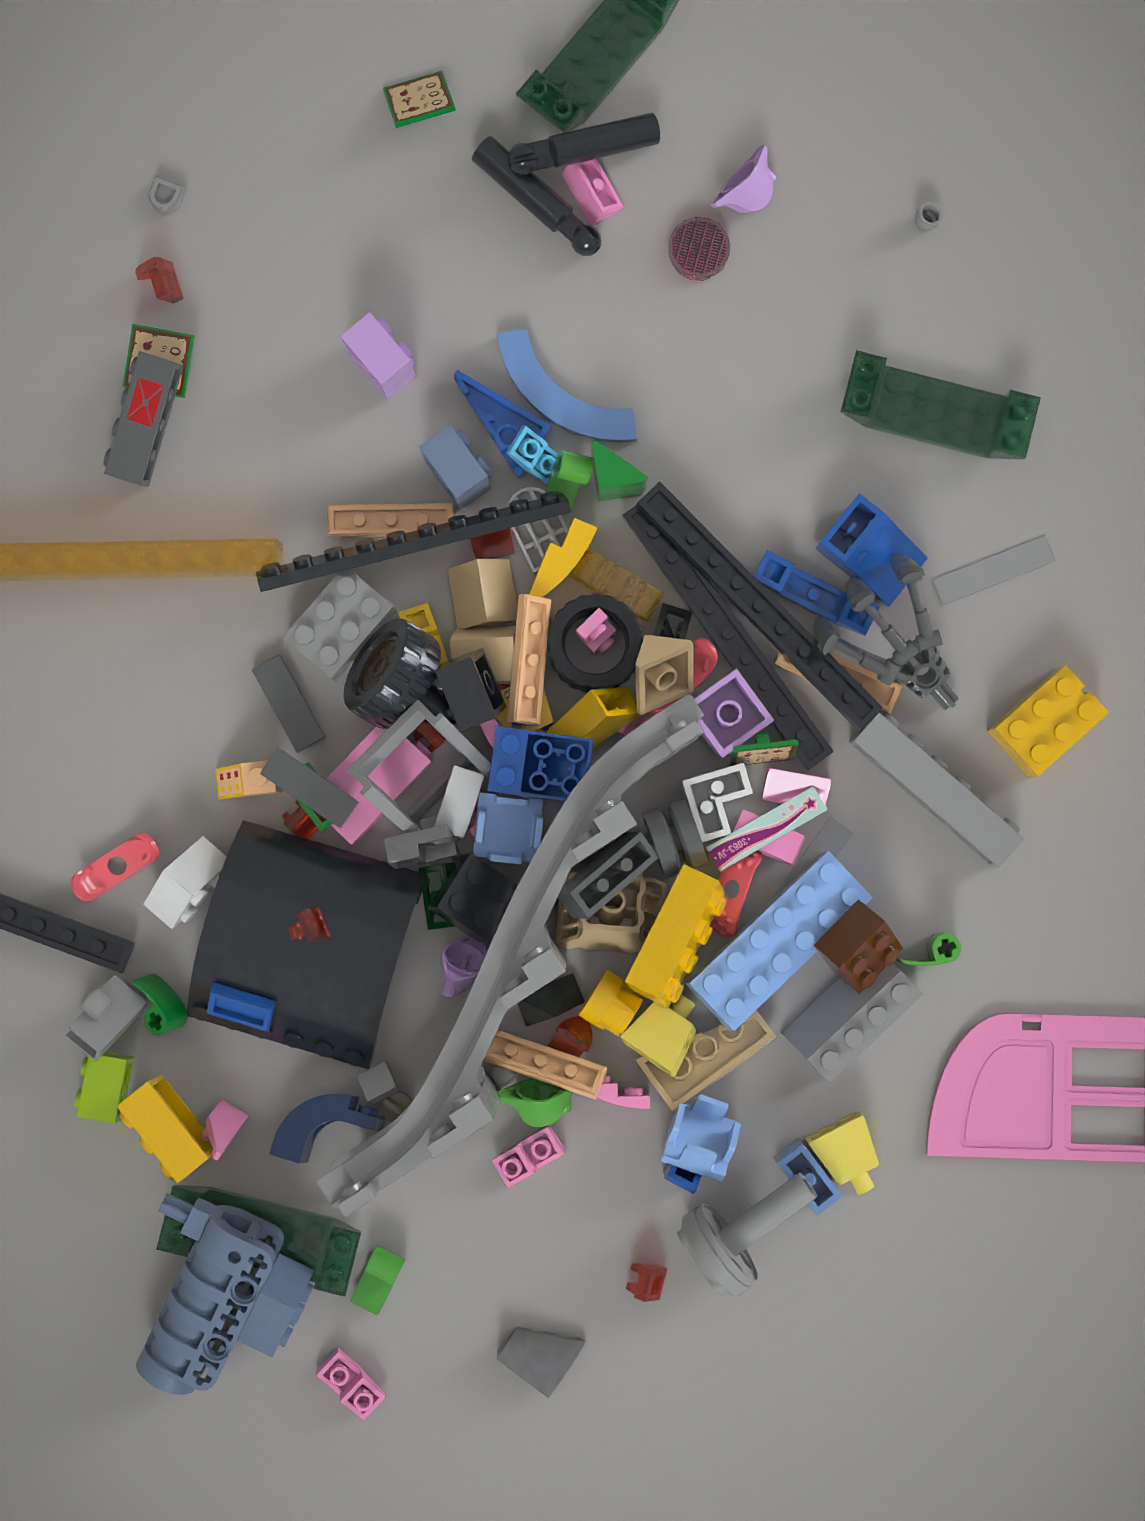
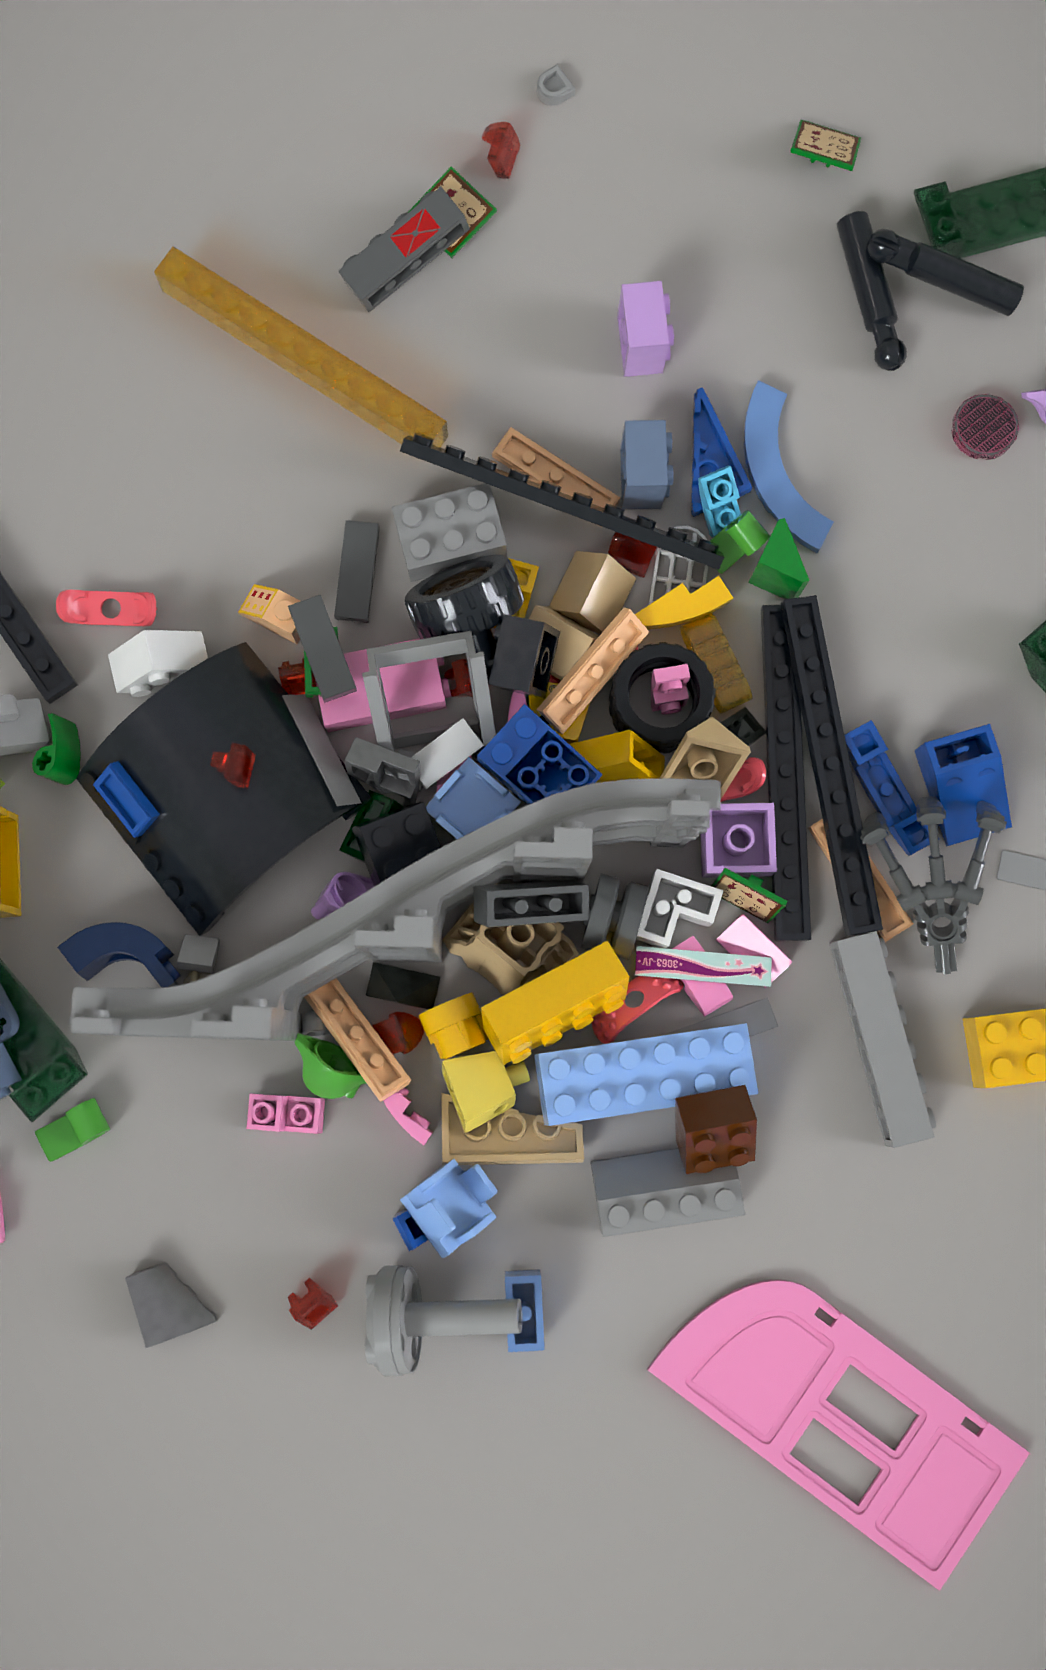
camera: 30 degrees right, 5 degrees down
(222, 1127) = (35, 894): bright pink slope -> none
(362, 864) = (321, 750): none -> light grey sticker
(592, 191) = (924, 317): bright pink slope -> none
(846, 1151) = (576, 1313): light yellow torso -> none
(936, 957) = (778, 1189): bright green panel -> none

